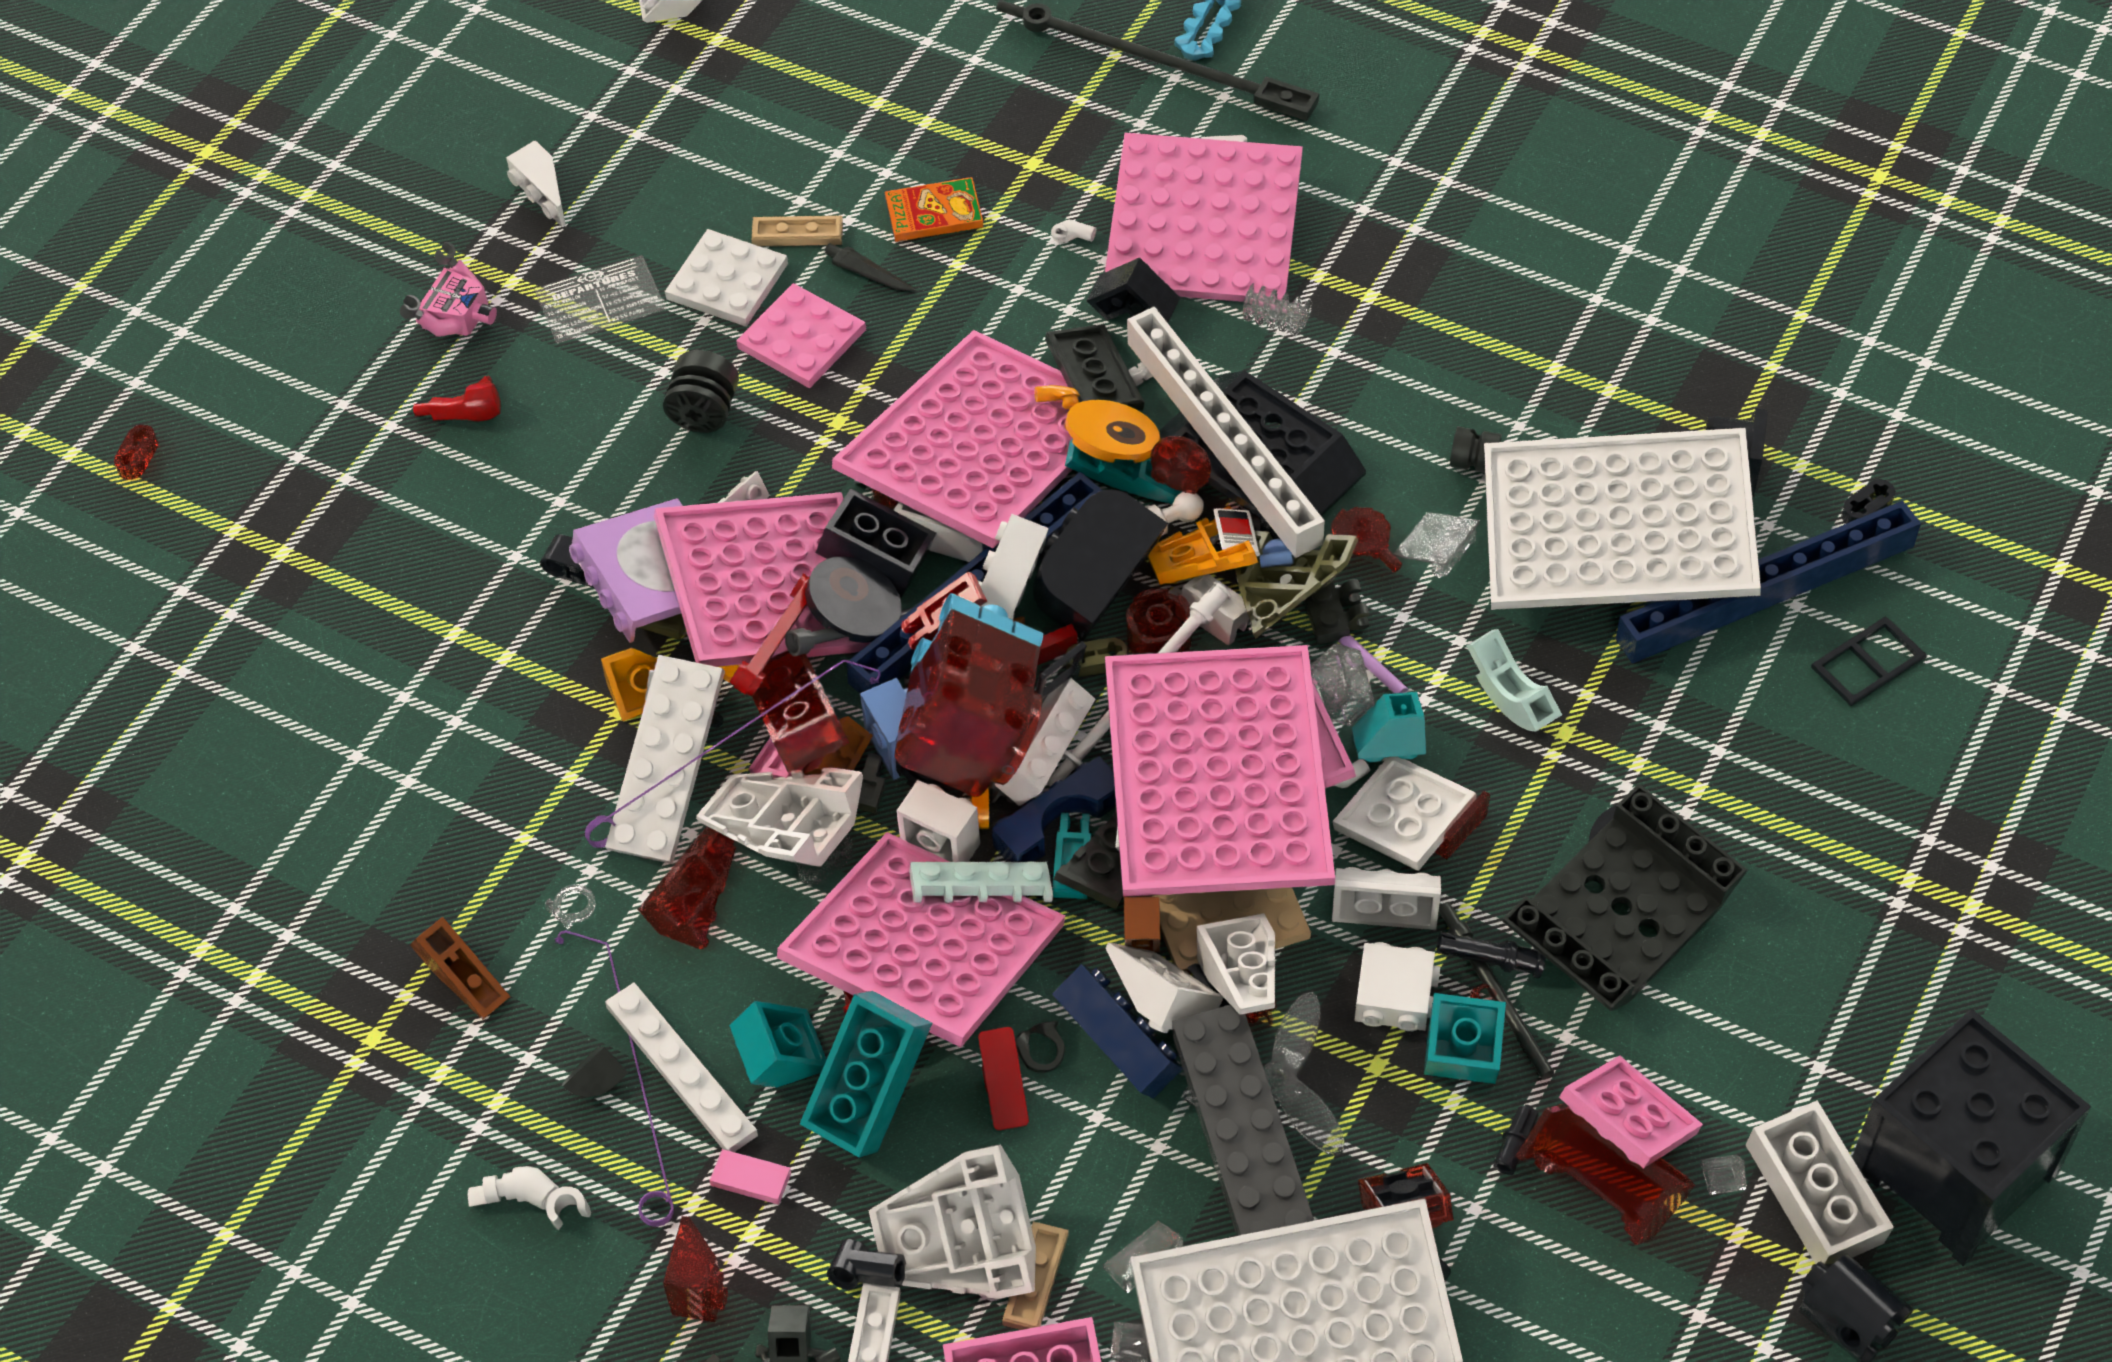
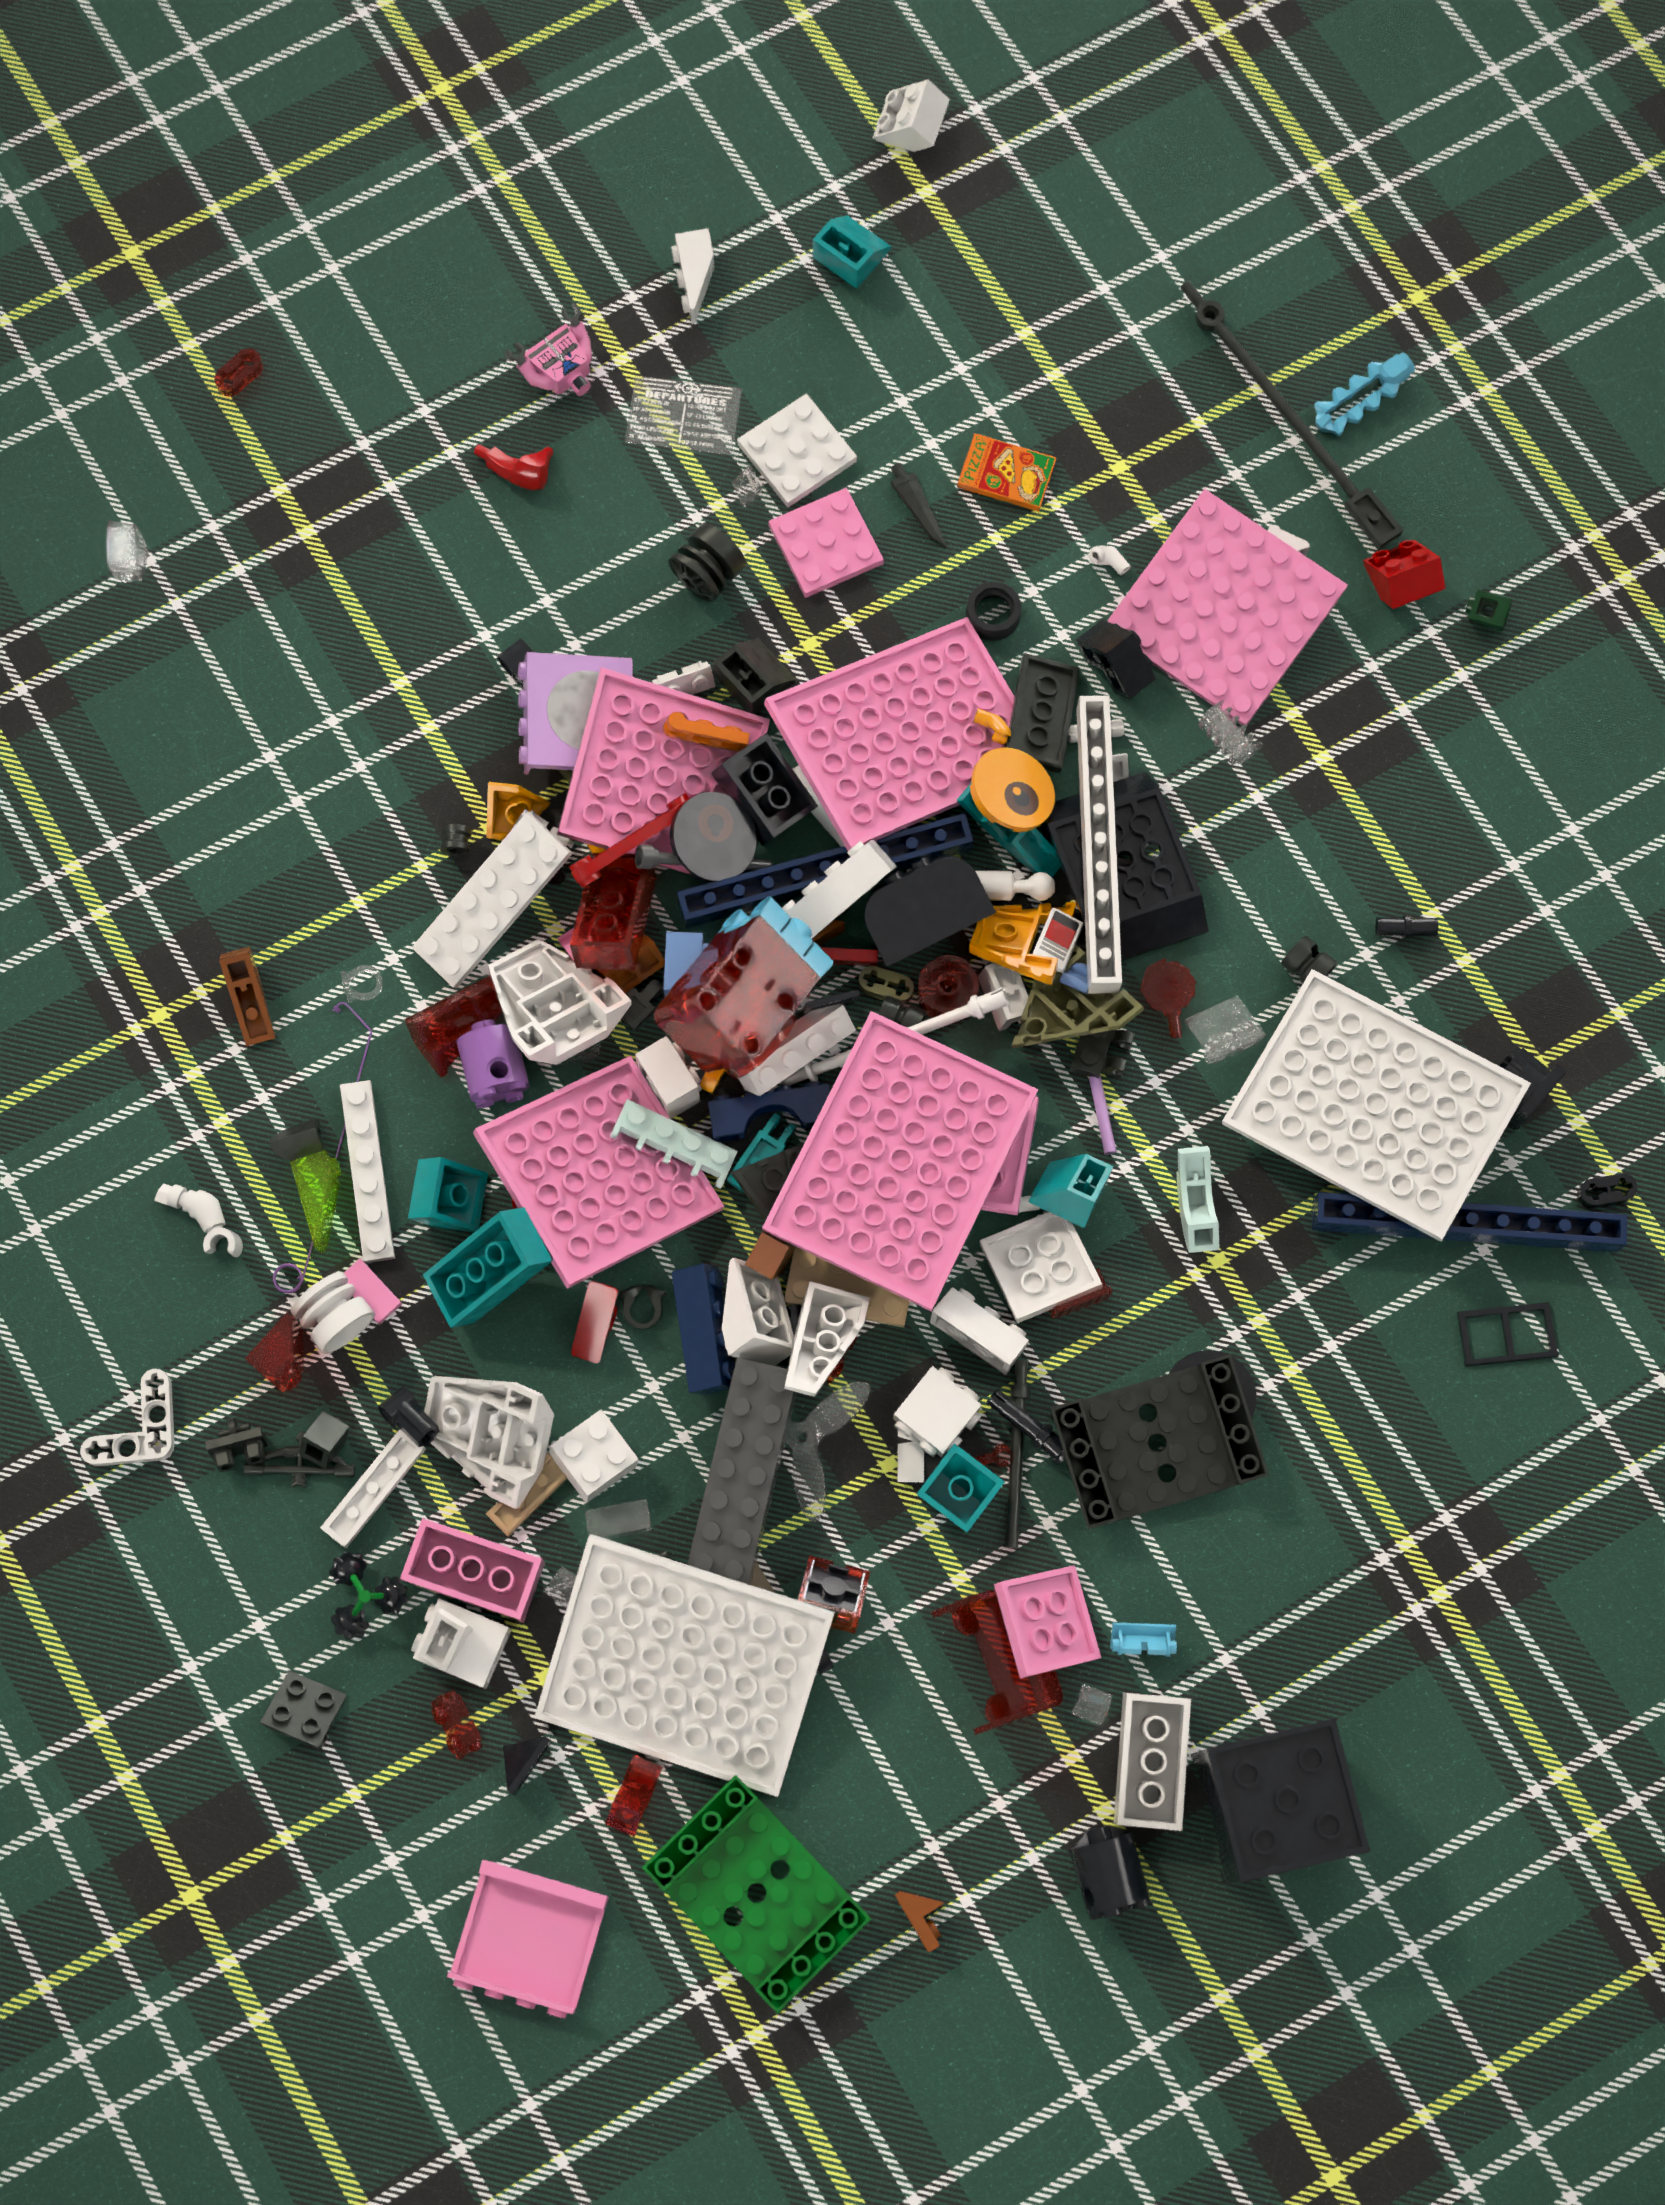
camera: 25 degrees right, 20 degrees up
(106, 640) = (126, 551): none -> clear slope
(593, 732) = (455, 840): none -> pearl dark grey wheel
(600, 819) = (421, 926): medium lavender piece -> none
(635, 1102) = (318, 1192): none -> clear neon green slope
(676, 107) = (849, 249): none -> teal slope
(698, 322) = (747, 486): none -> clear slope
(728, 1204) = (332, 1312): none -> white wheel
(754, 900) = (492, 1064): none -> medium lavender cylinder
(788, 521) = (705, 733): none -> orange plate
(797, 230) = (881, 433): tan tile -> none
(798, 466) = (752, 674): none -> pearl dark grey slope
(928, 613) = (787, 892): hinge -> none
(995, 298) = (996, 590): none -> black tyre
(1081, 1202) = (593, 1456): none -> white brick
(1180, 464) = (1048, 852): clear red dish -> none
(1342, 683) = (1059, 1123): clear brick -> none
(1344, 124) = (1405, 573): none -> red slope
(1394, 1047) = (910, 1460): none -> white sticker
(1437, 109) = (1500, 605): none -> dark green brick
(1514, 1138) = (952, 1587): black axle -> none
(1540, 384) = (1406, 926): none -> black pin
(1730, 1084) = (1135, 1637): none -> medium azure hinge

